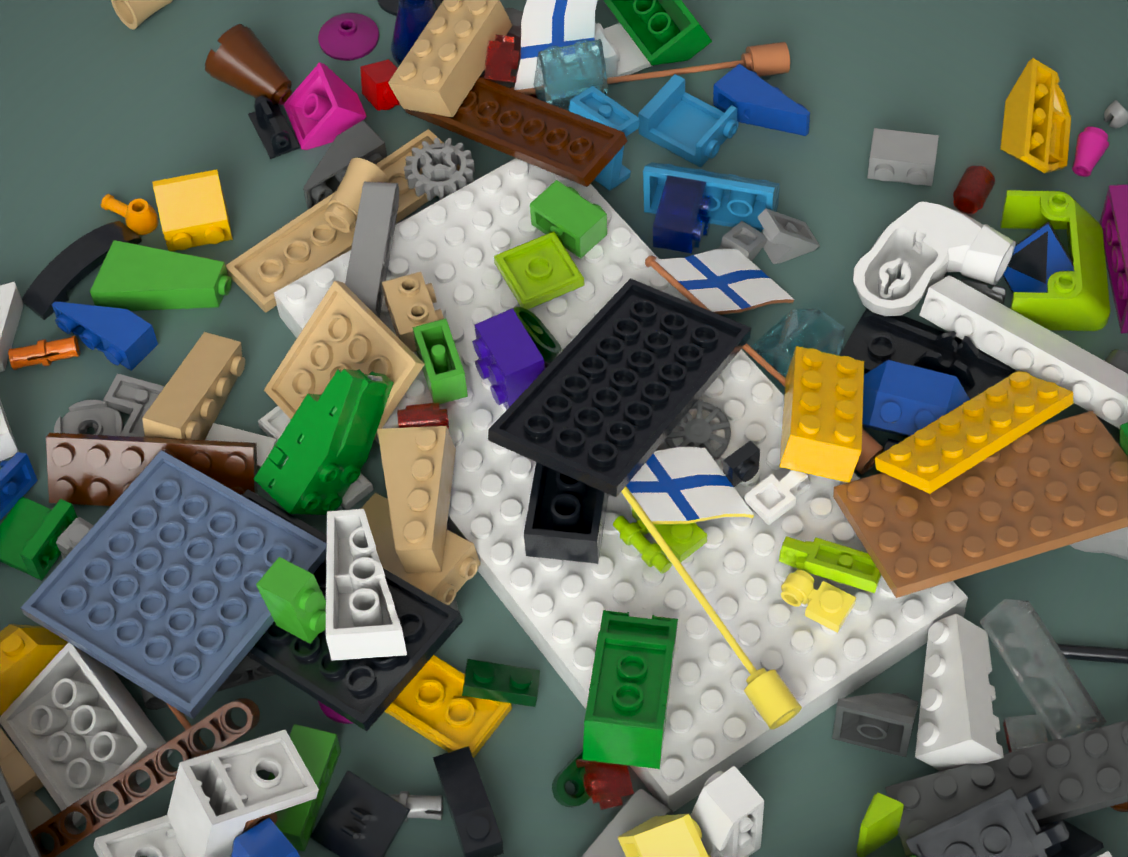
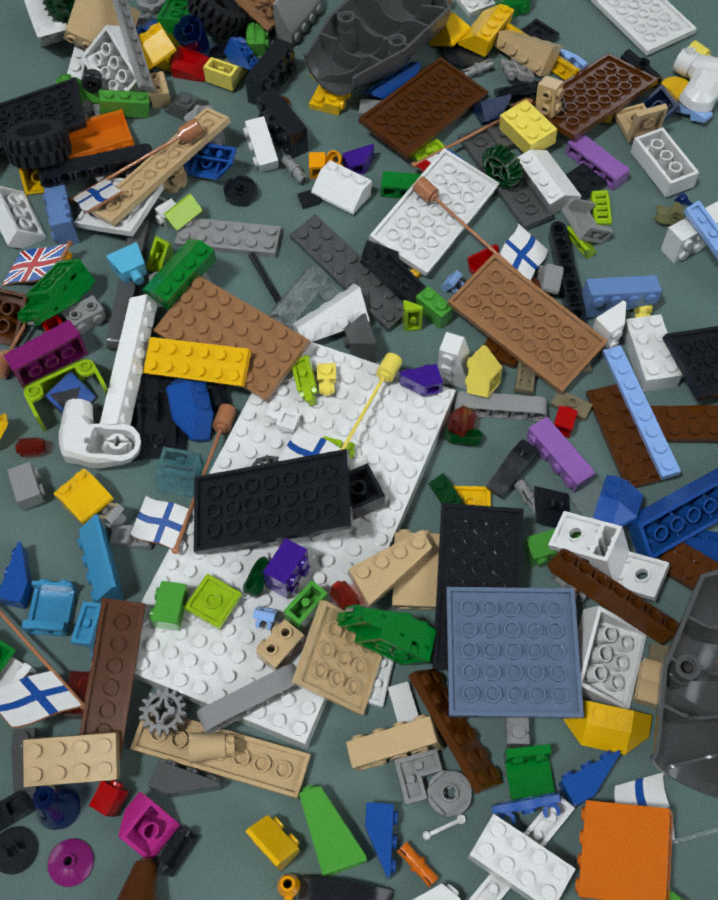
camera: 125 degrees left, 5 degrees up
(67, 385) = (460, 820): none -> white hinge
(294, 599) = (491, 570): bright green brick -> none
(358, 600) = (465, 548): white wedge -> none
(467, 314) = (265, 614): none -> light blue tile
(501, 59) = (66, 720): clear red brick -> none
(569, 71) = (63, 667): clear light blue slope -> none
(629, 690) = (424, 416): green piece -> none
(682, 215) = (130, 560): clear blue brick -> none
(708, 736) = (422, 380): none -> dark purple slope
(742, 464) = (276, 440): black plate -> none
(822, 414) = (227, 421): yellow brick -> none
(835, 212) = (83, 496): none -> yellow slope

